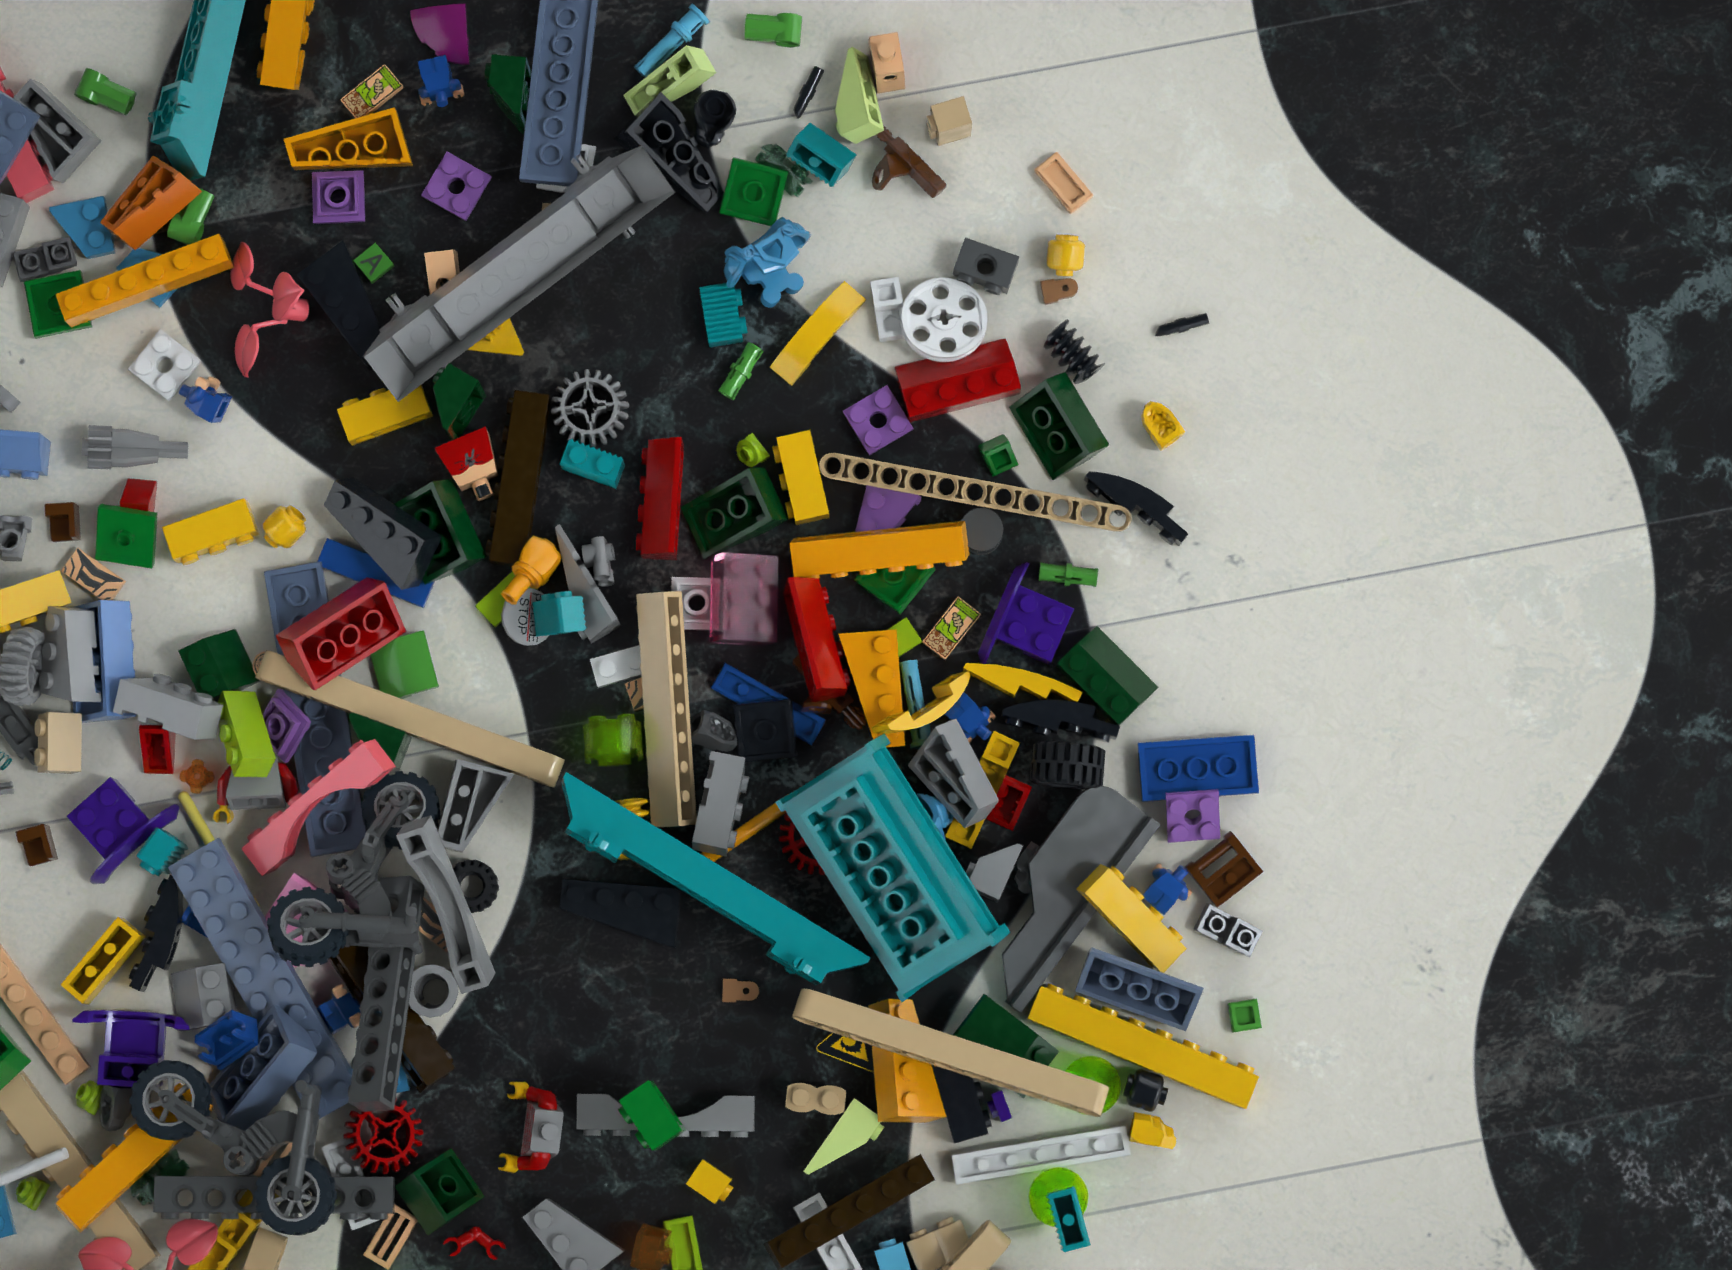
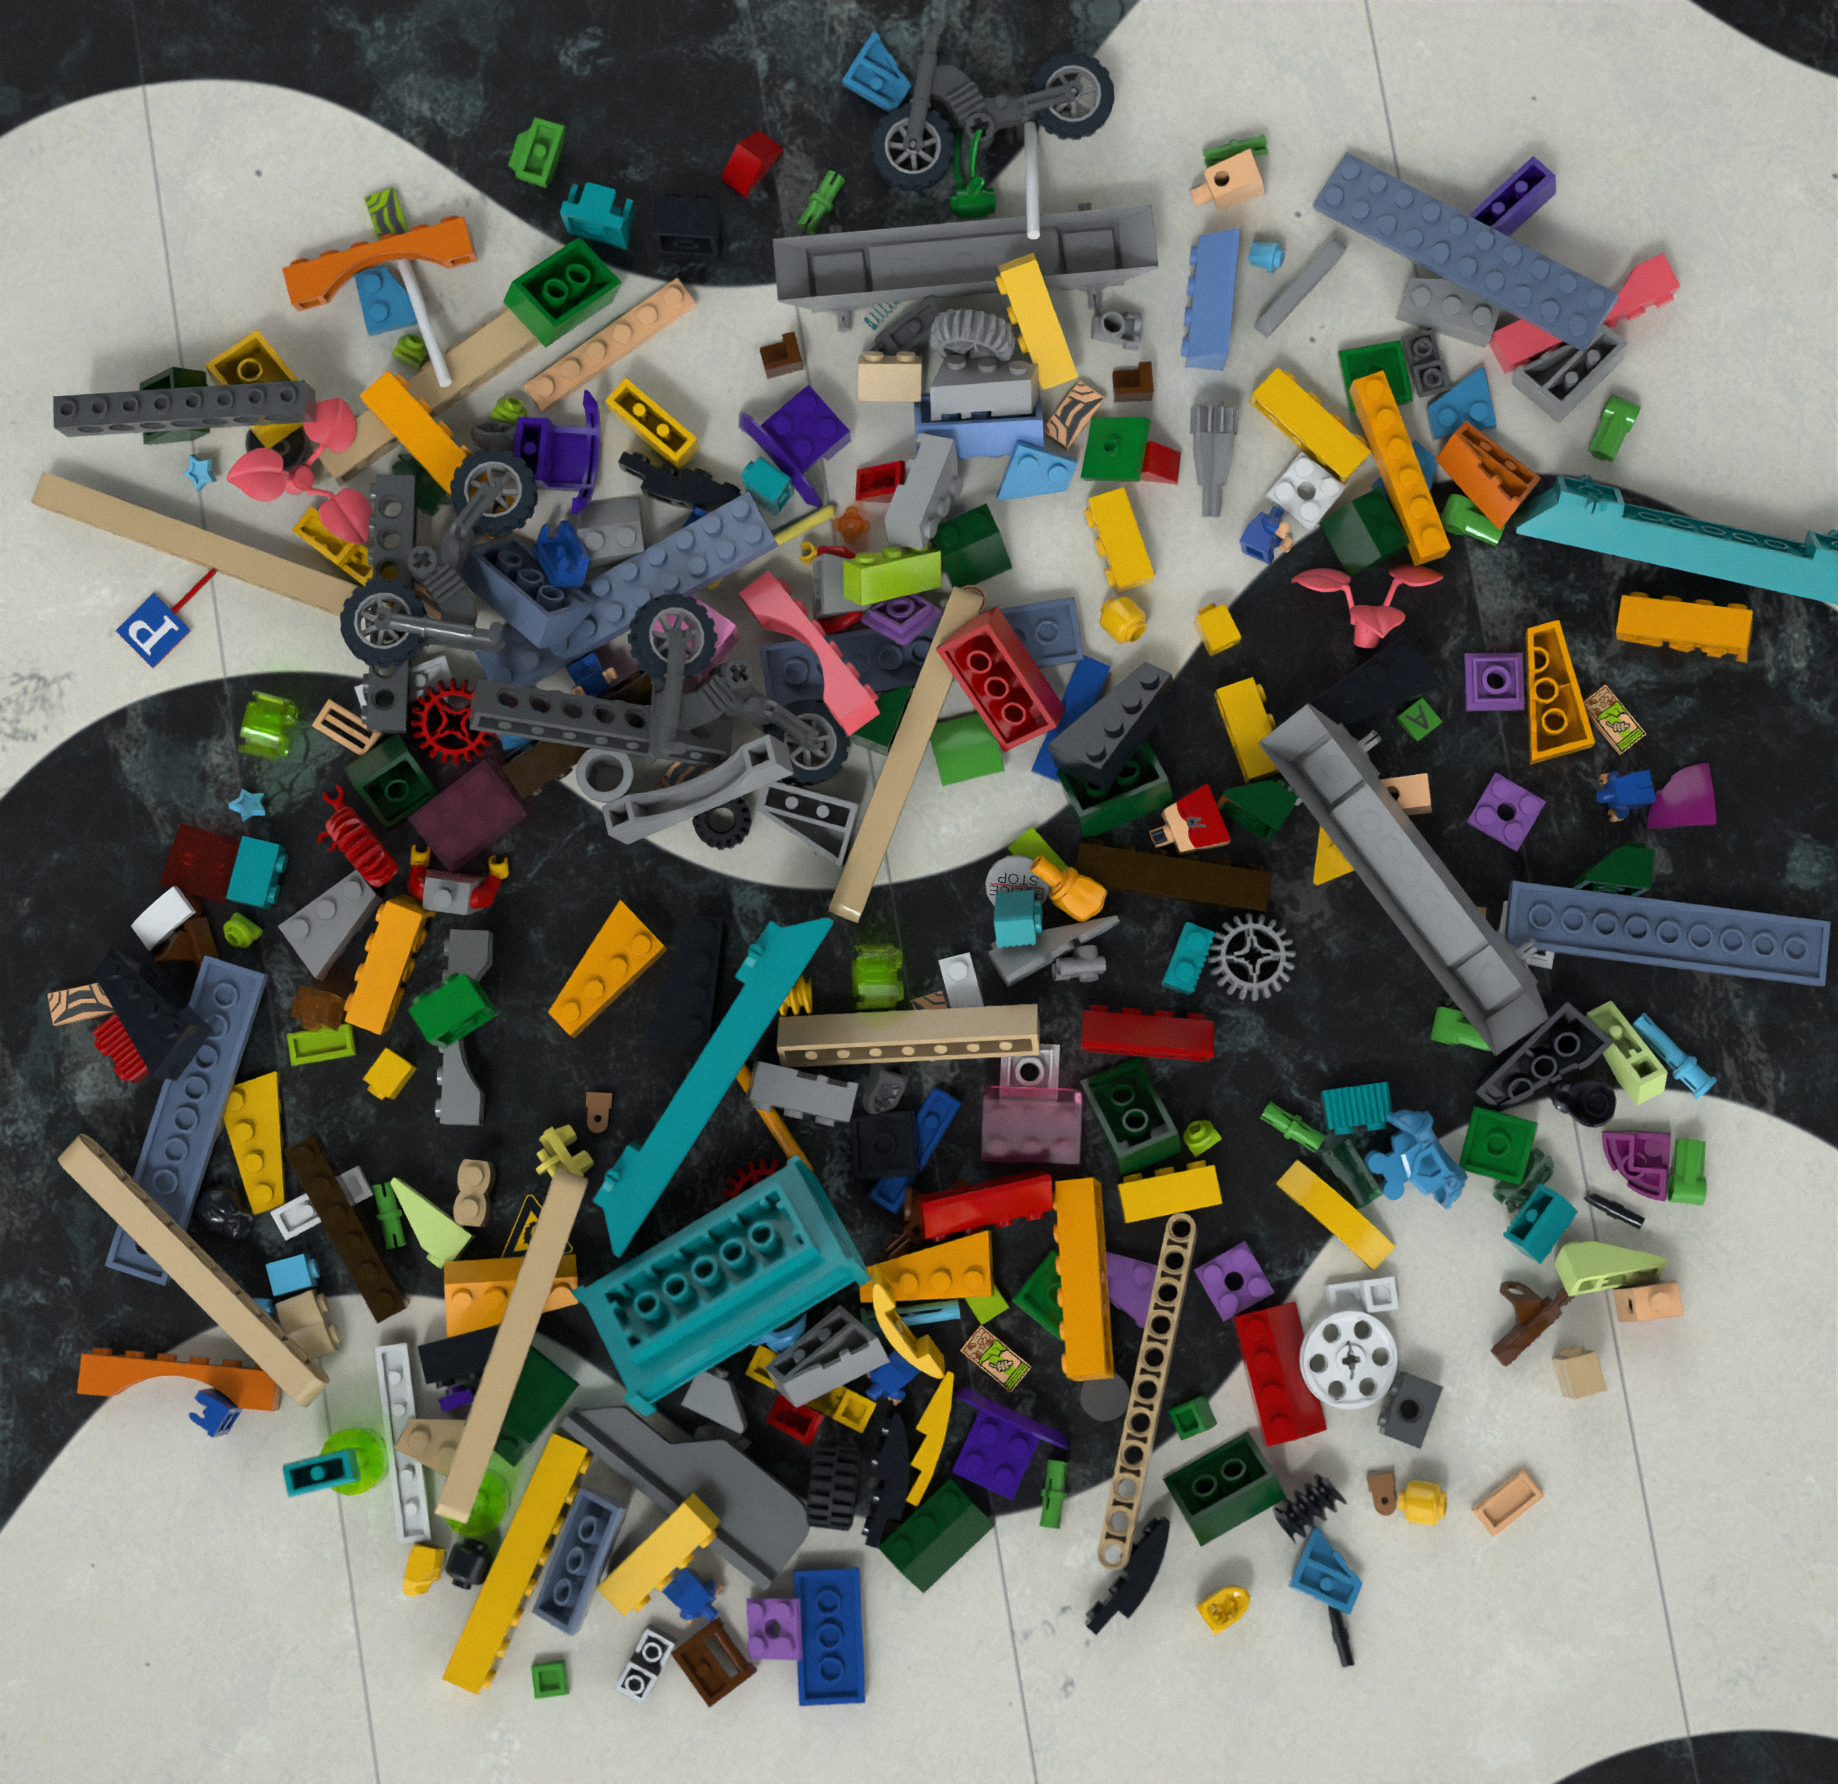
camera: 95 degrees right, 0 degrees up
(104, 361) = (1309, 425): none -> yellow brick
(147, 608) = (1035, 472): none -> dark azure wing
(203, 312) = (1364, 533): none -> dark green slope
(291, 443) = (1216, 628): none -> yellow brick
(471, 1118) = (468, 816): none -> clear pink brick
(501, 1213) = (361, 847): none -> red gear
(604, 980) = (608, 968): none -> light orange wedge
(608, 1185) = (387, 963): none -> light orange wedge
(650, 230) = (1454, 1028): none -> bright green piece
(763, 69) = (1640, 1159): none -> magenta brick
(781, 317) = (1352, 1174): none -> clear green hinge
(781, 1024) = (555, 1144): none -> light yellow hips
(837, 1177) = (389, 1215): none -> bright green pin
(1040, 1126) = (431, 1442): none -> tan wing
(1130, 338) = (1325, 1575): none -> dark azure wing

